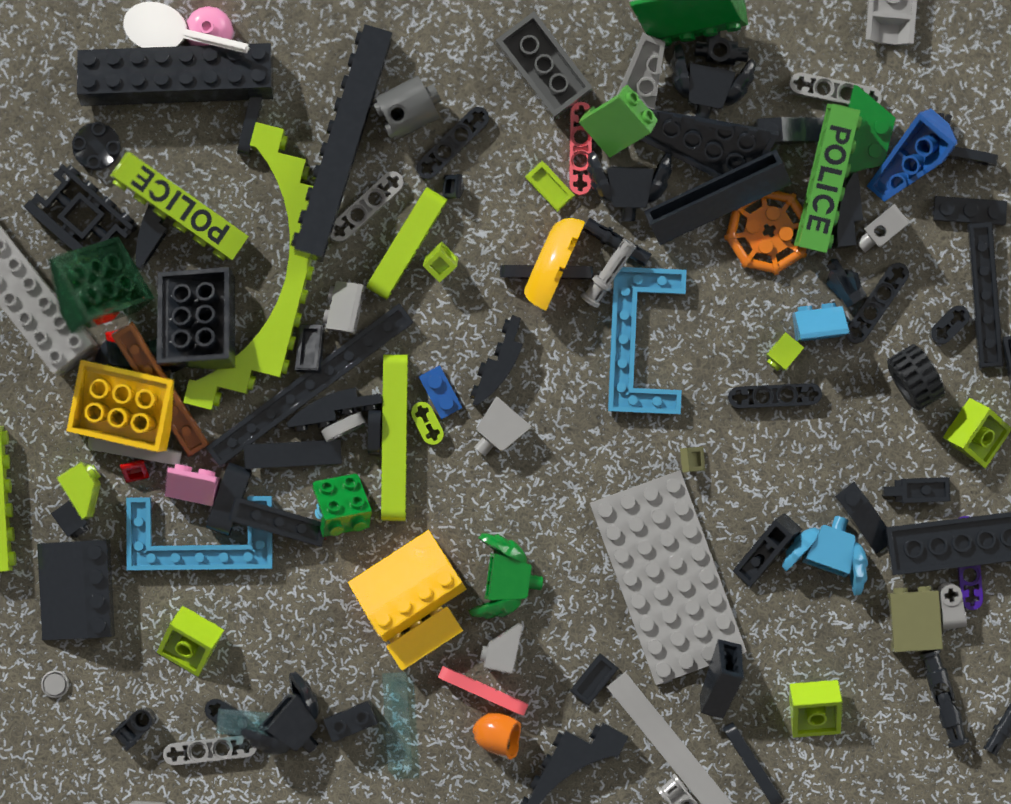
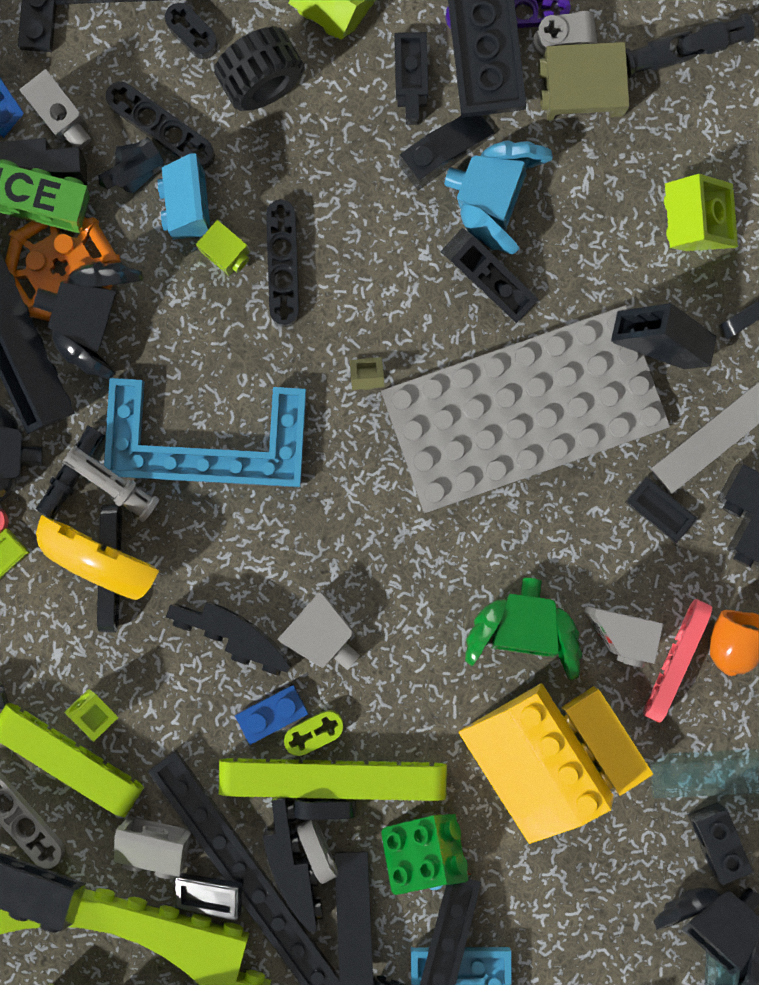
camera: 90 degrees left, 0 degrees up
(734, 251) = (82, 312): none -> black torso

